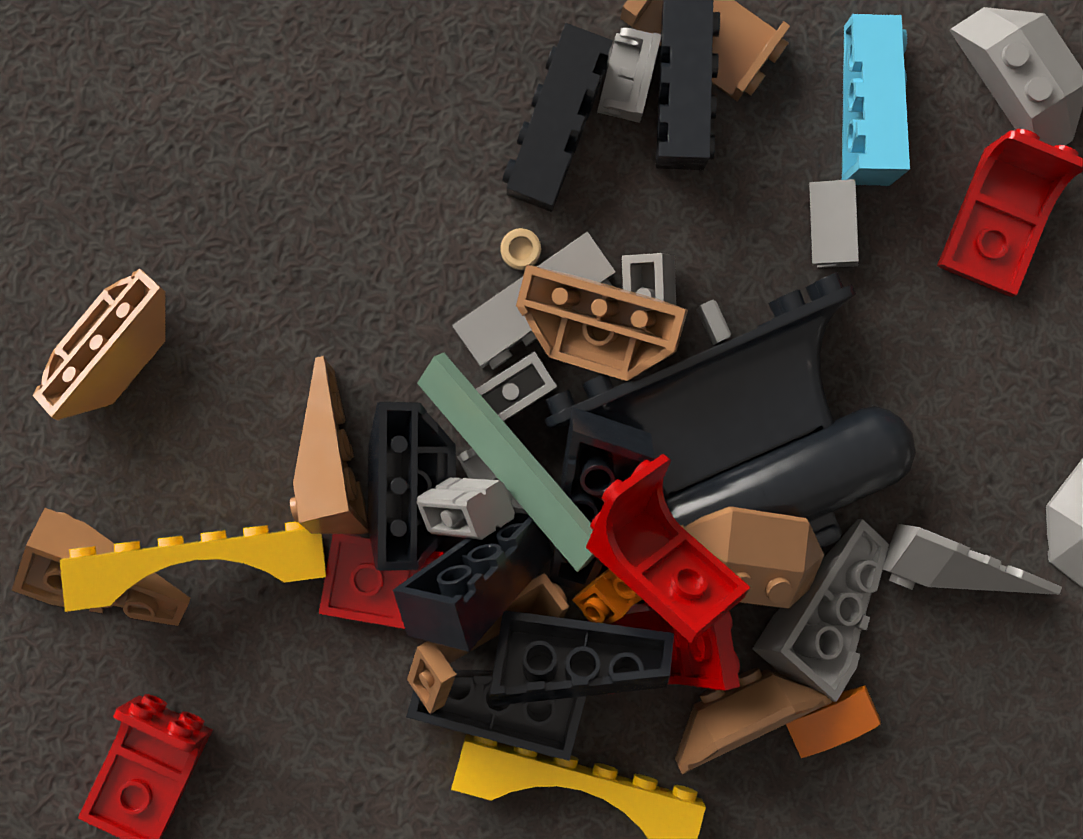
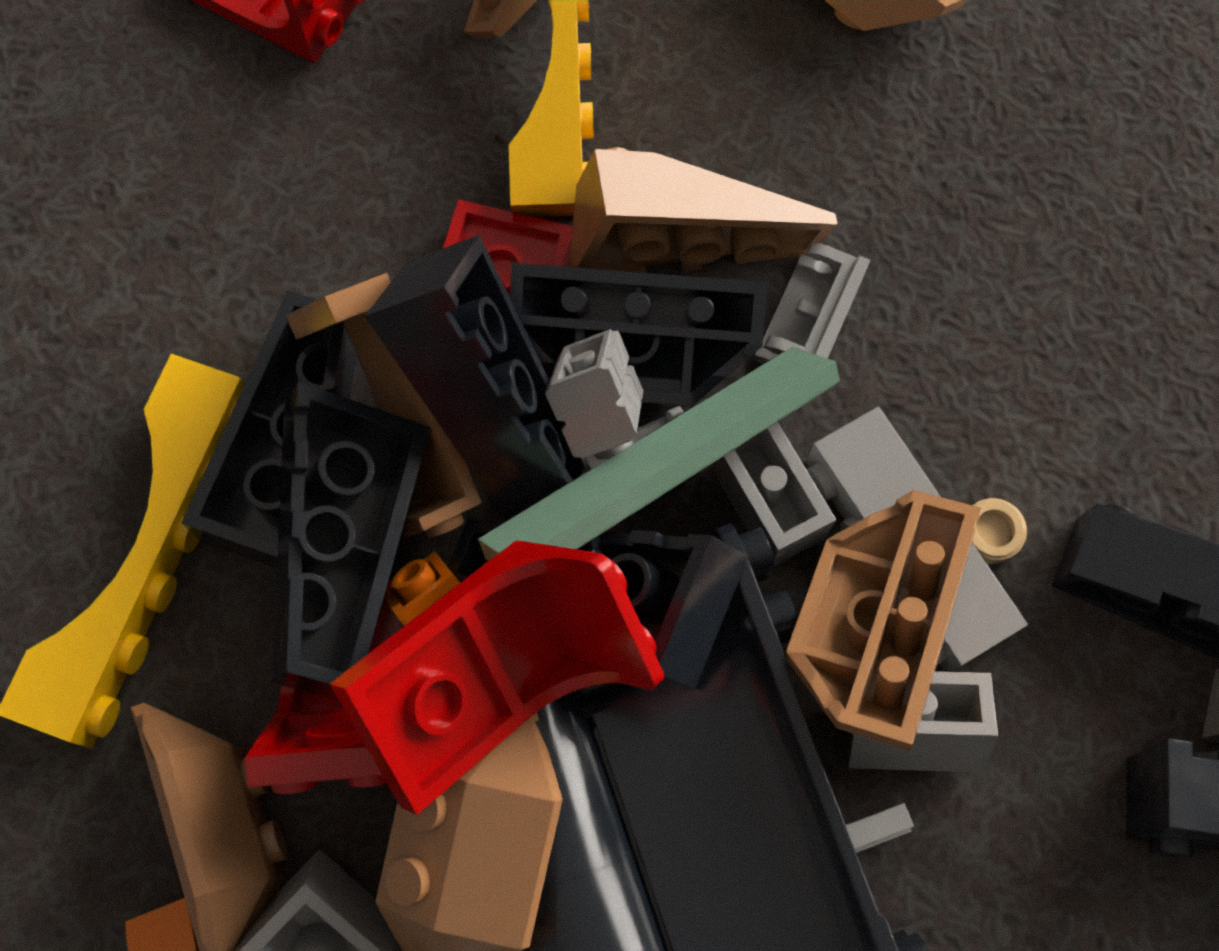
camera: 100 degrees right, 15 degrees down
(381, 369) = (814, 303): none -> light grey hinge

